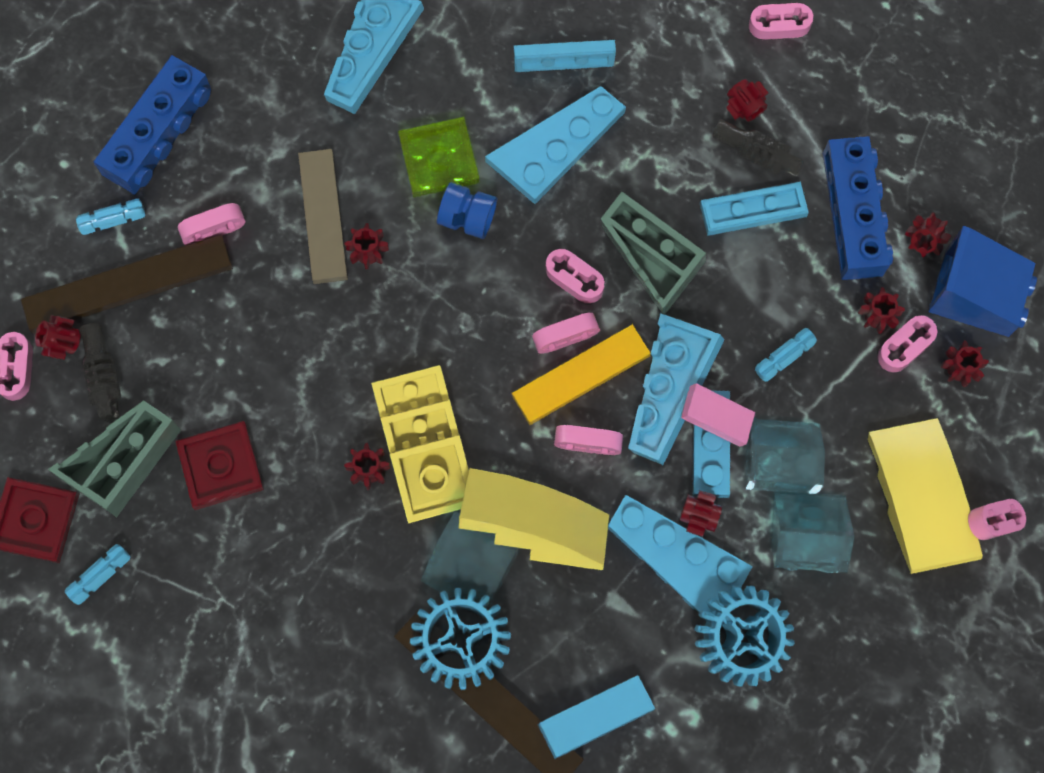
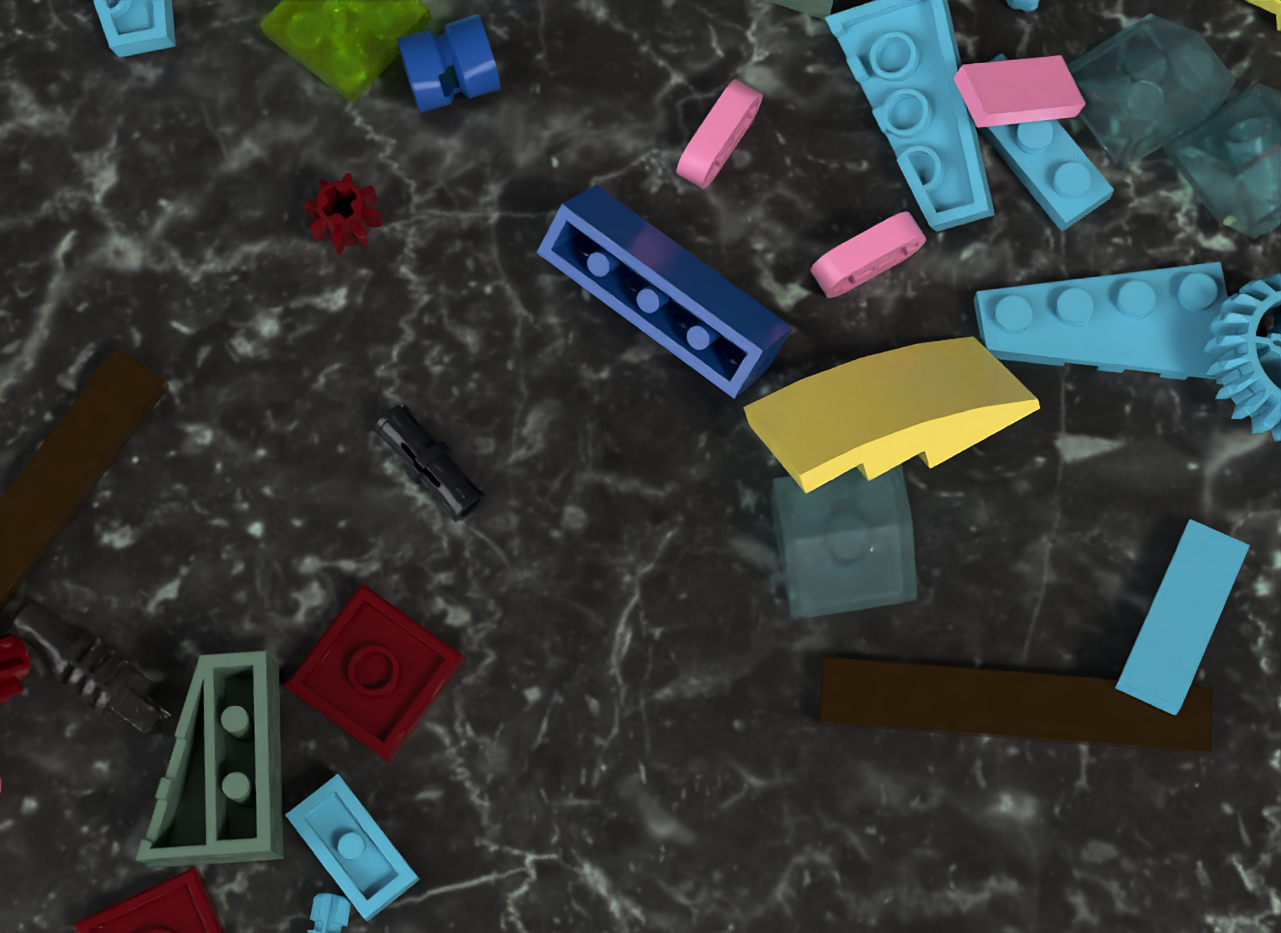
camera: 35 degrees left, 0 degrees up
(148, 535) = (352, 847): none -> medium azure plate
(211, 223) = (89, 342): bright pink beam -> none
(316, 388) = (429, 462): none -> black pin
(323, 216) = (244, 219): dark tan tile -> none
(359, 461) = (595, 498): dark red gear -> none
(423, 442) = (644, 426): light yellow slope -> none
(444, 645) = (947, 601): medium azure gear -> none
(479, 388) = (664, 290): none -> blue brick
(570, 282) = (667, 50): bright pink beam -> none
(581, 374) = (783, 177): yellow tile -> none
(701, 513) = (1099, 240): dark red gear -> none

